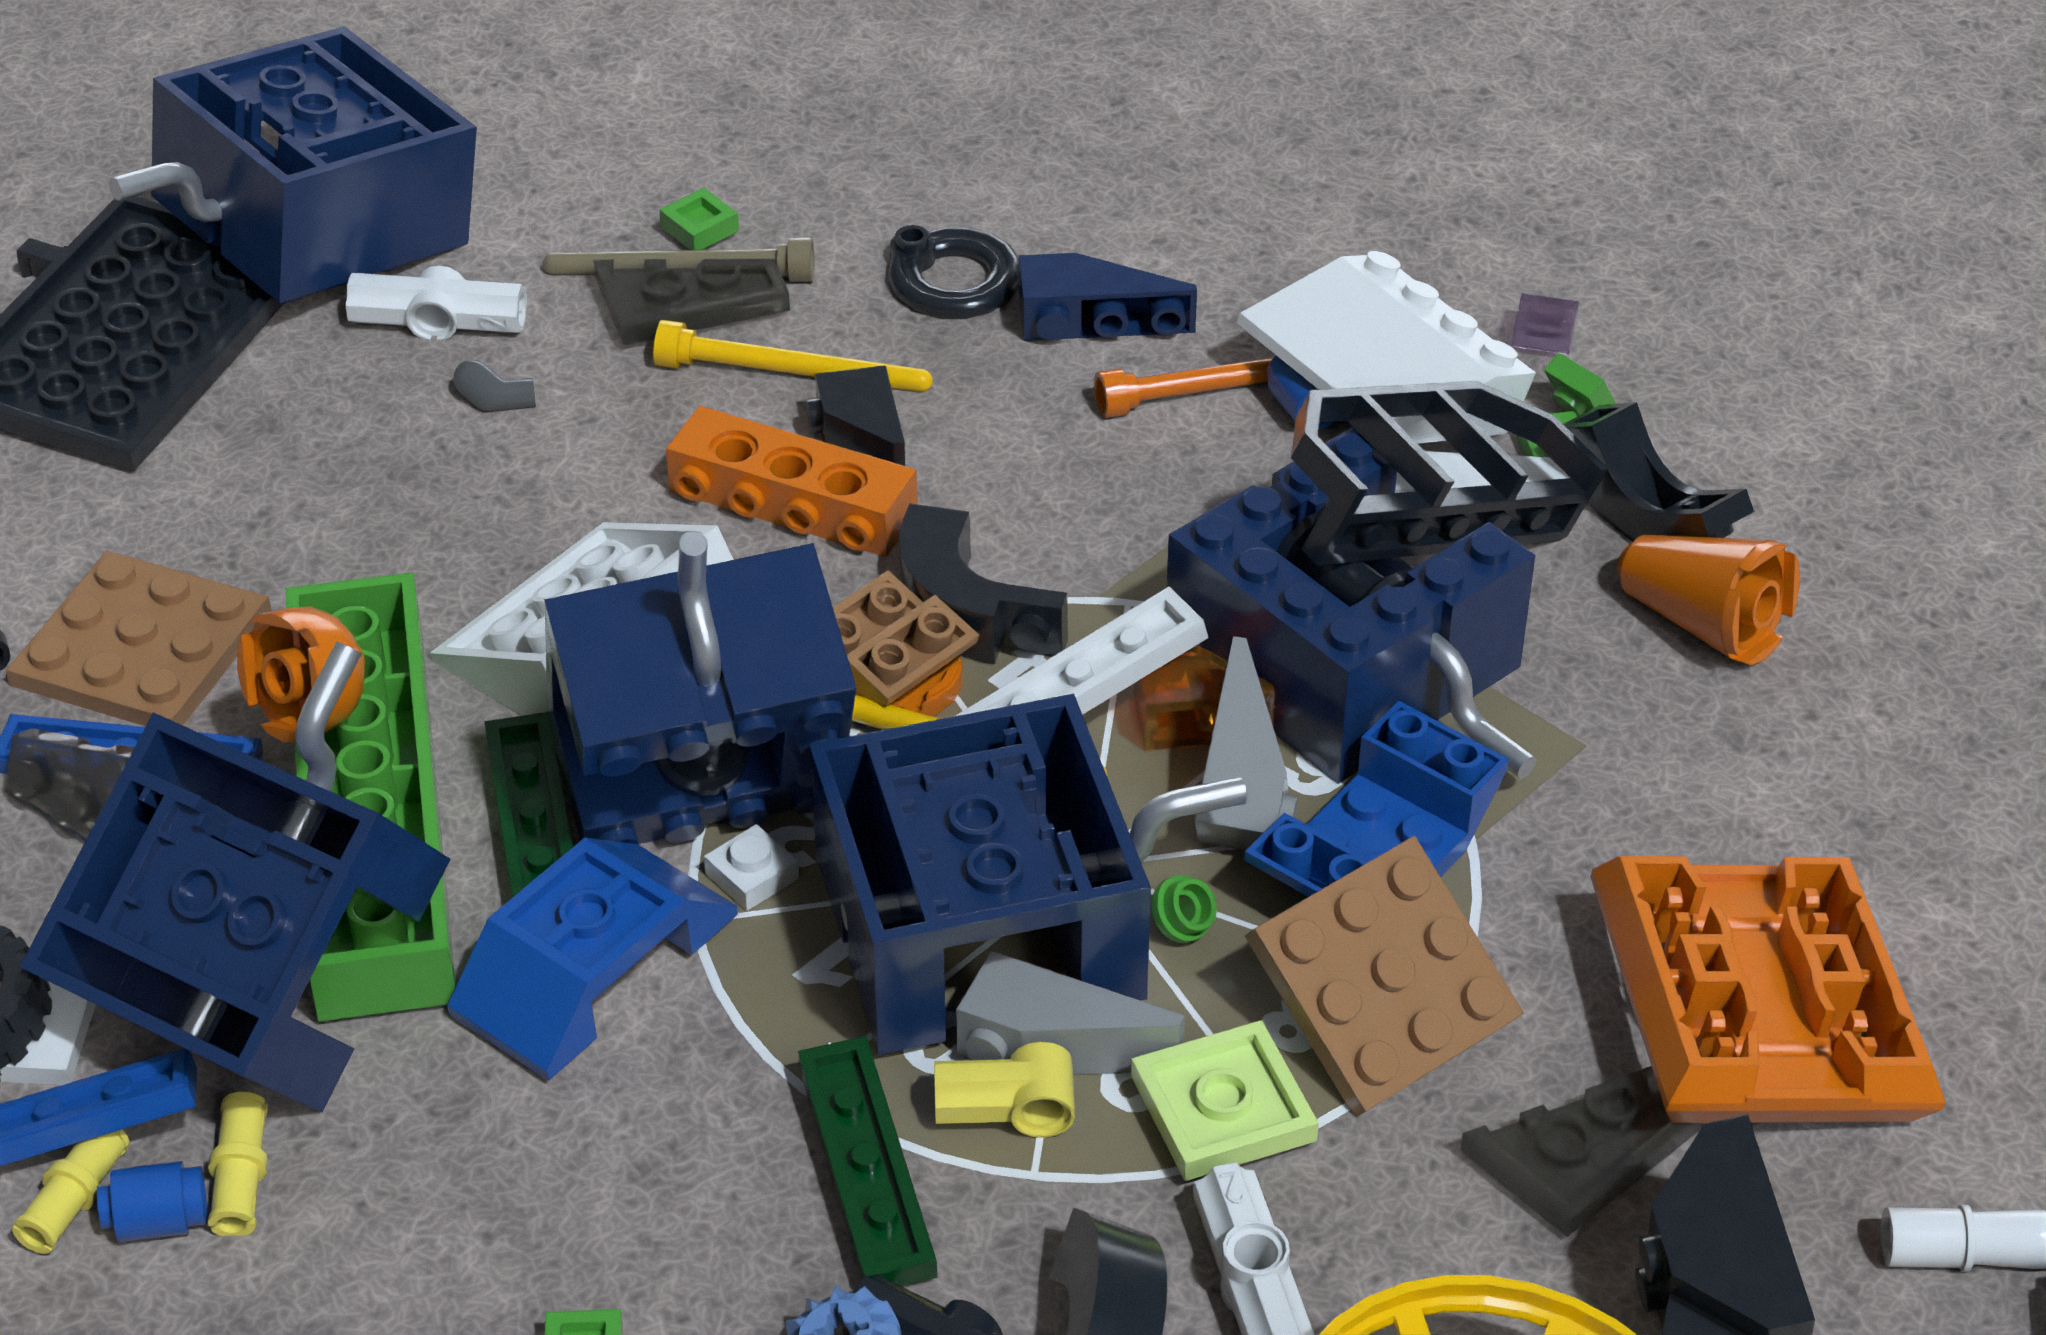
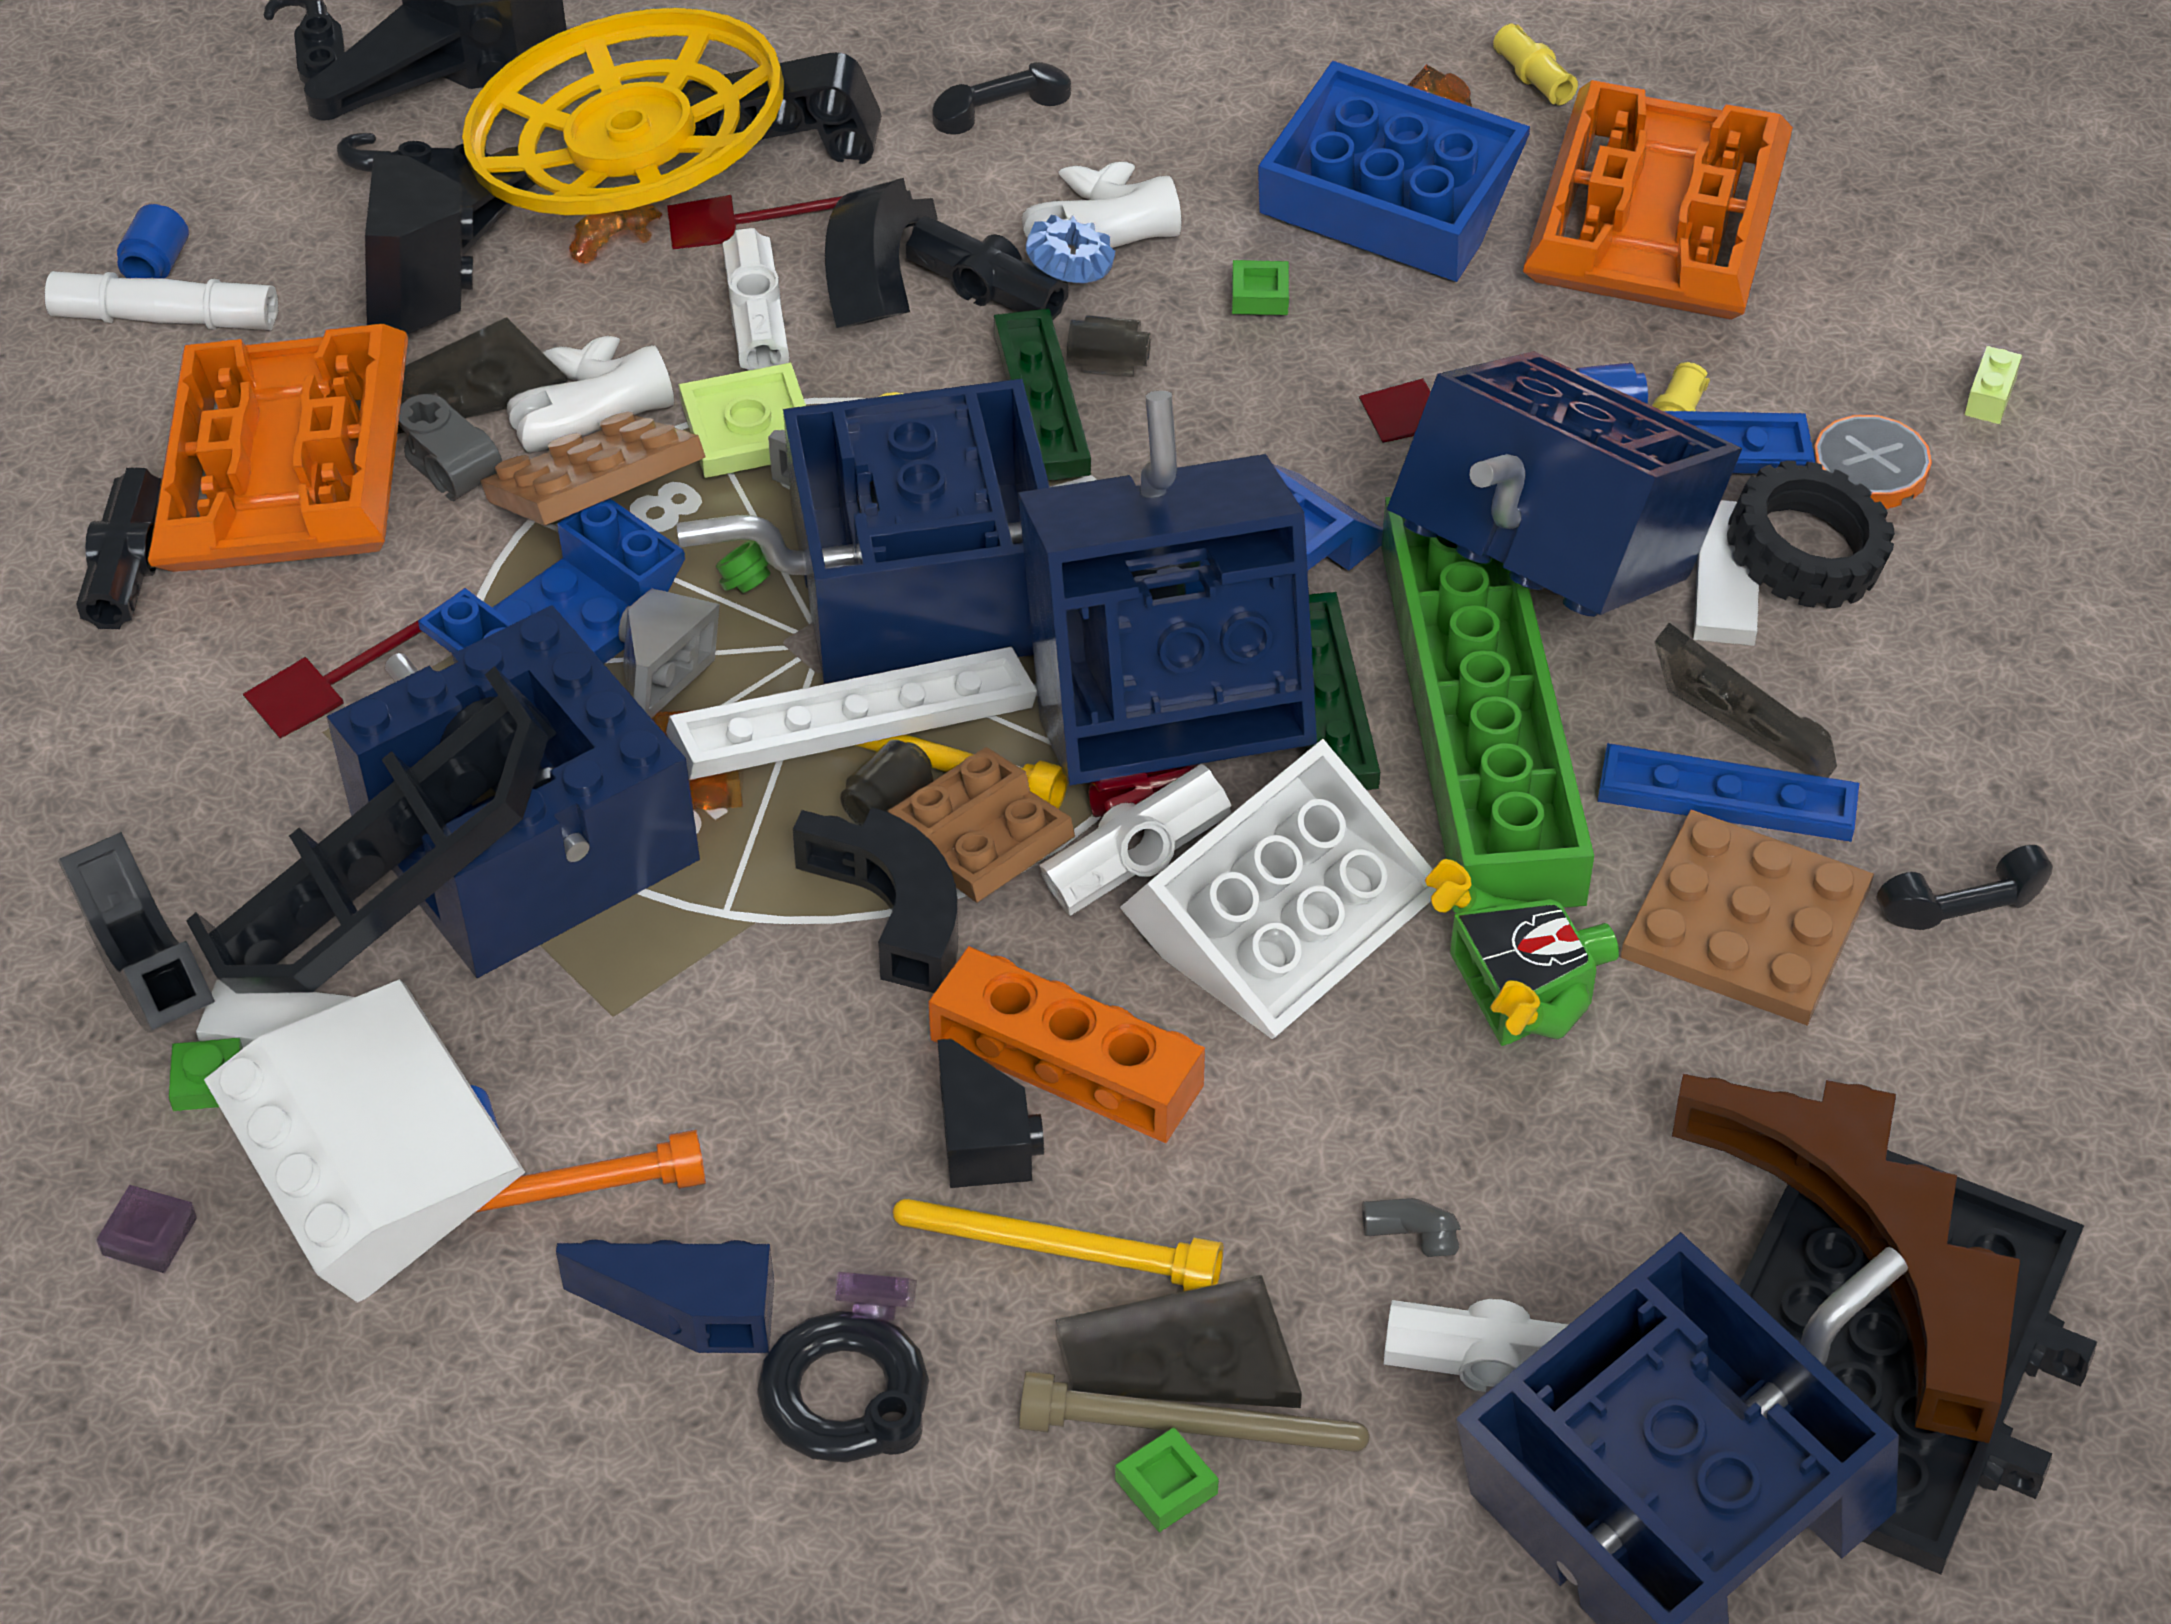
camera: 175 degrees left, 5 degrees up
(107, 382) = (1835, 1153): none -> reddish brown arch
(283, 662) = (1546, 691): orange cylinder -> none
(370, 536) = (1520, 956): none -> torso
(397, 1200) = (1396, 409): none -> dark red piece
(784, 1233) = (1108, 345): none -> clear smoke brick
(935, 307) = (875, 1295): none -> clear purple plate
(983, 671) = (886, 779): none -> clear smoke brick
(1376, 1127) = (601, 390): none -> white piece
(1571, 1032) = (446, 445): none -> dark grey piece
(1575, 386) = (150, 1115): bright green plate -> none
(1621, 772) = (304, 695): none -> dark red piece
(1715, 588) = (129, 793): orange cone -> none
(1896, 892) = (119, 550): none -> black piece

